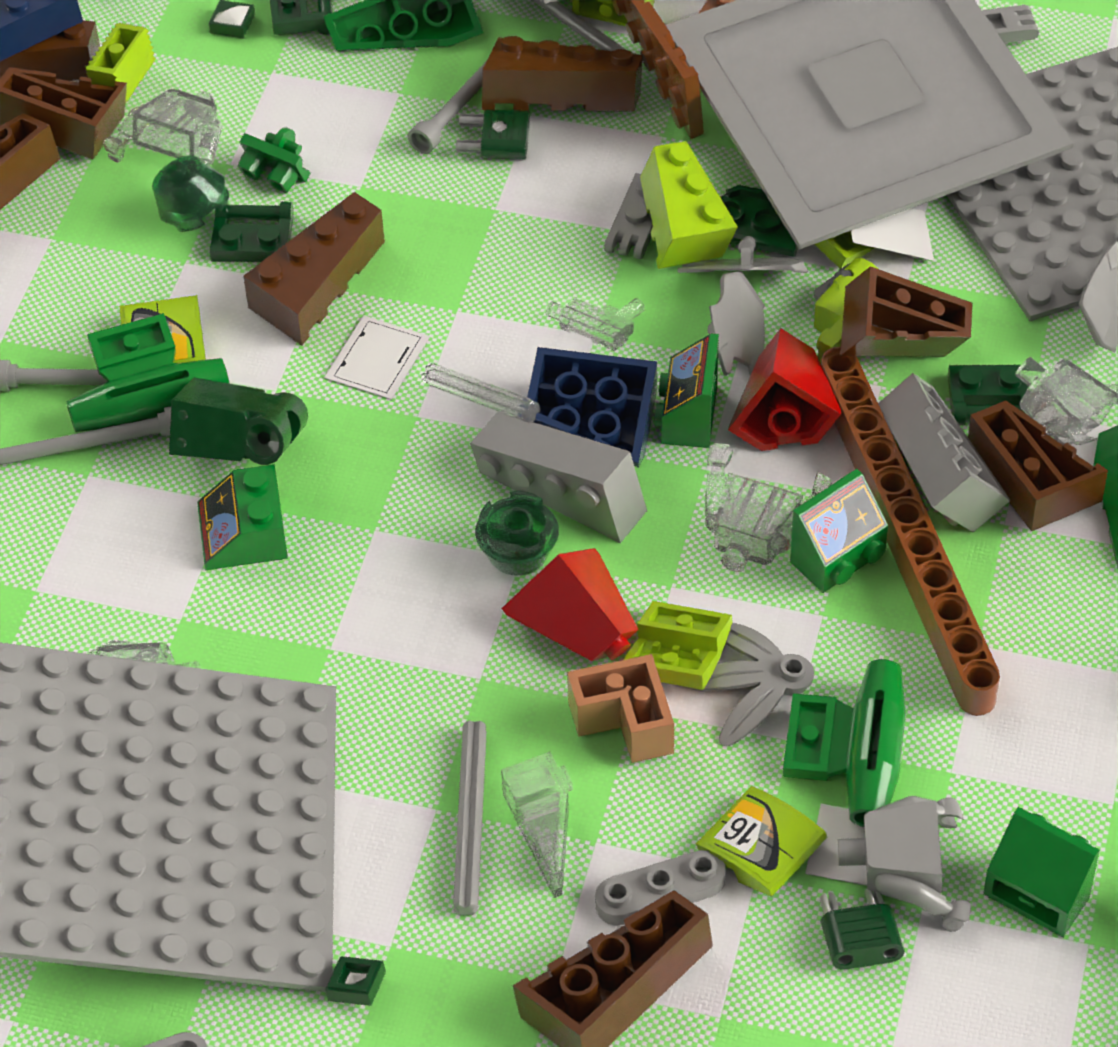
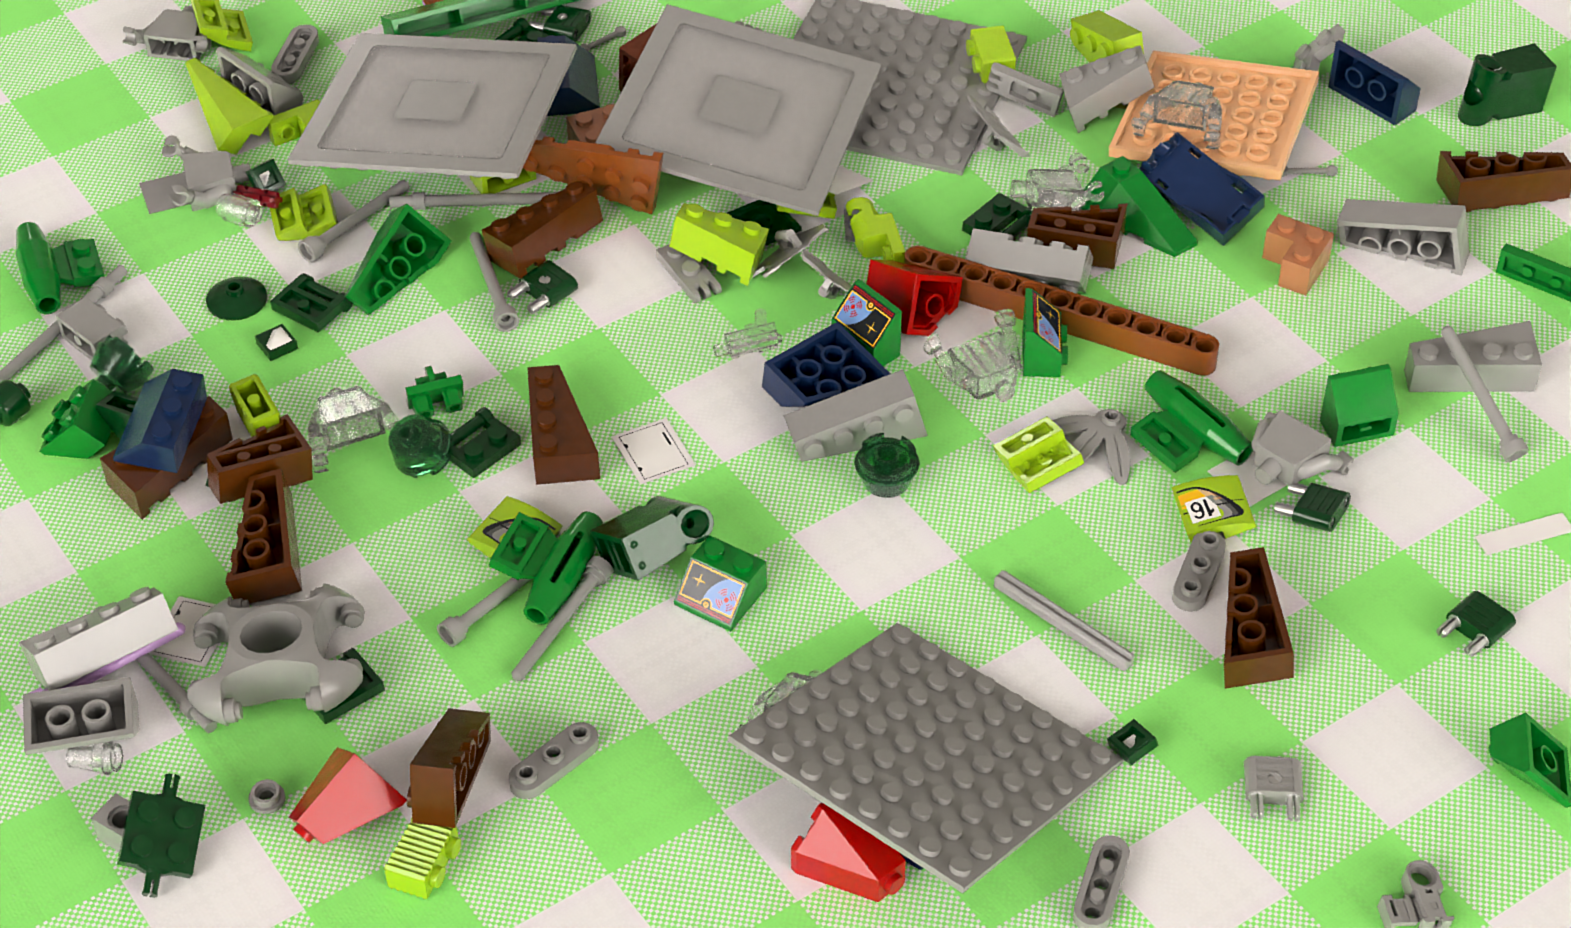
camera: 50 degrees left, 5 degrees down
(480, 392) = (758, 414): clear axle -> none
(539, 802) = (1101, 585): clear slope -> none
(576, 606) = (968, 476): red slope -> none
(624, 697) = (1067, 493): nougat brick -> none
(901, 318) = (921, 208): reddish brown wedge -> none

